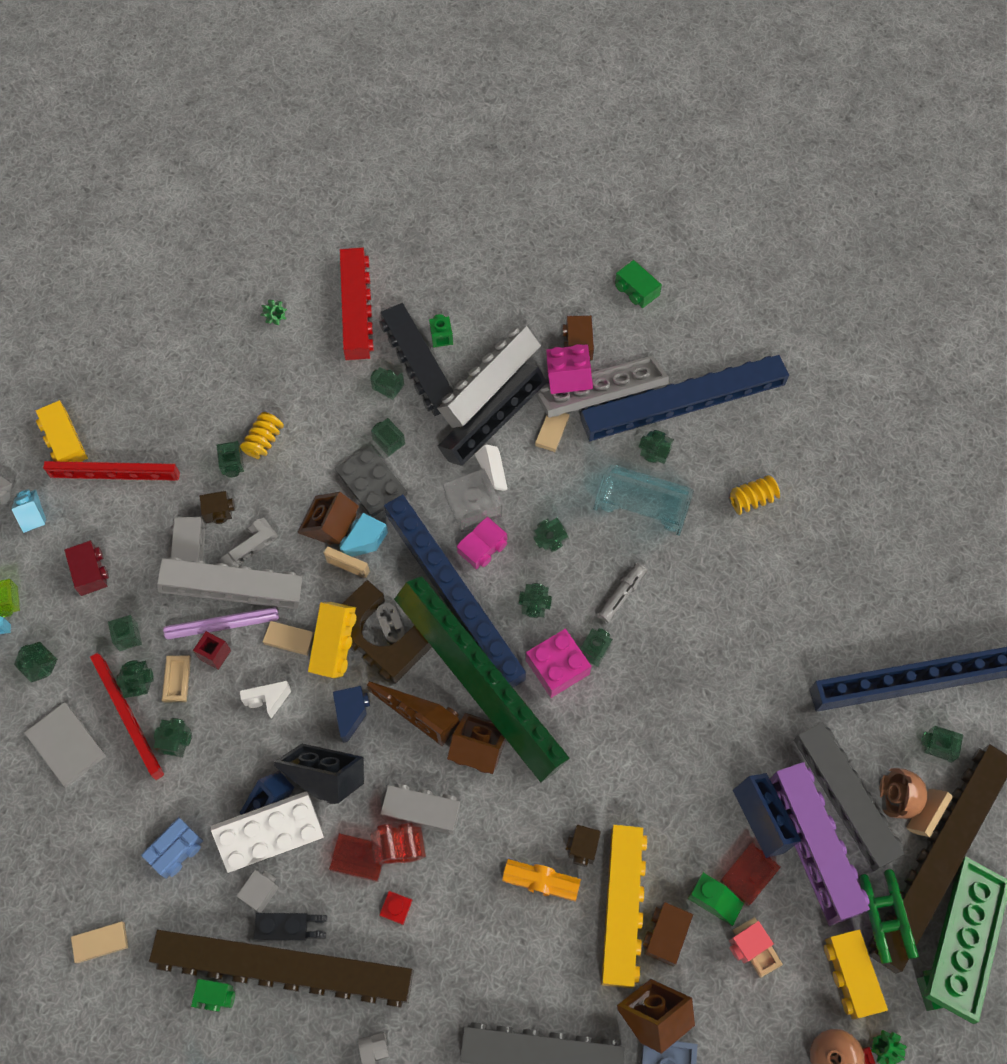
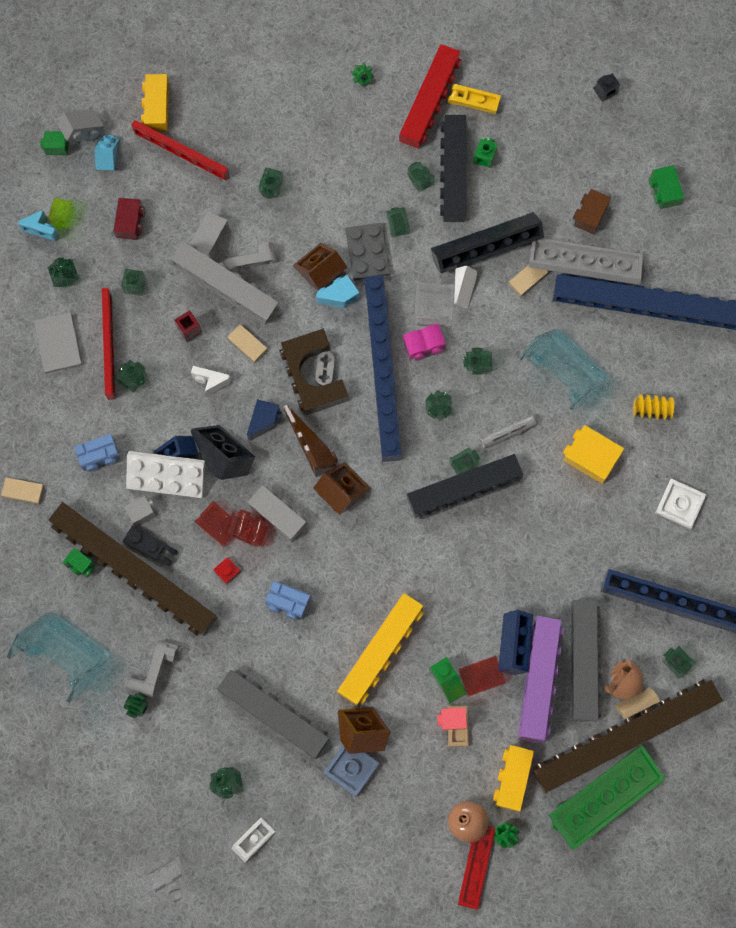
camera: 30 degrees right, 10 degrees up
(135, 678) = (125, 320): clear green brick -> none
(176, 678) = (154, 333): tan tile -> none
(216, 507) = (242, 217): dark brown brick -> none
(221, 623) = (204, 308): lavender axle -> none
(261, 434) = (302, 174): yellow piece -> none
(332, 639) = (275, 361): yellow brick -> none
(346, 562) = (316, 307): tan tile -> none
(401, 287) = (474, 99): none -> yellow plate
(481, 679) = (366, 442): dark green brick -> none
(486, 904) = (287, 600): none -> medium blue brick
(488, 376) = (501, 210): light grey brick -> none
(526, 220) = (606, 84): none -> black brick
(541, 879) = (334, 604): light orange piece -> none
(558, 663) = (429, 459): dark pink brick -> none
(569, 369) = (566, 234): dark pink brick -> none
(583, 845) = (376, 596): dark brown brick -> none
(610, 672) = (465, 486): none -> black brick
(656, 446) = (599, 331): clear green brick -> none
(668, 933) = (400, 684): reddish brown brick -> none
(722, 571) = (592, 453): none -> yellow brick
(838, 578) = (680, 503): none -> white tile
(900, 923) = (562, 762): green piece -> none

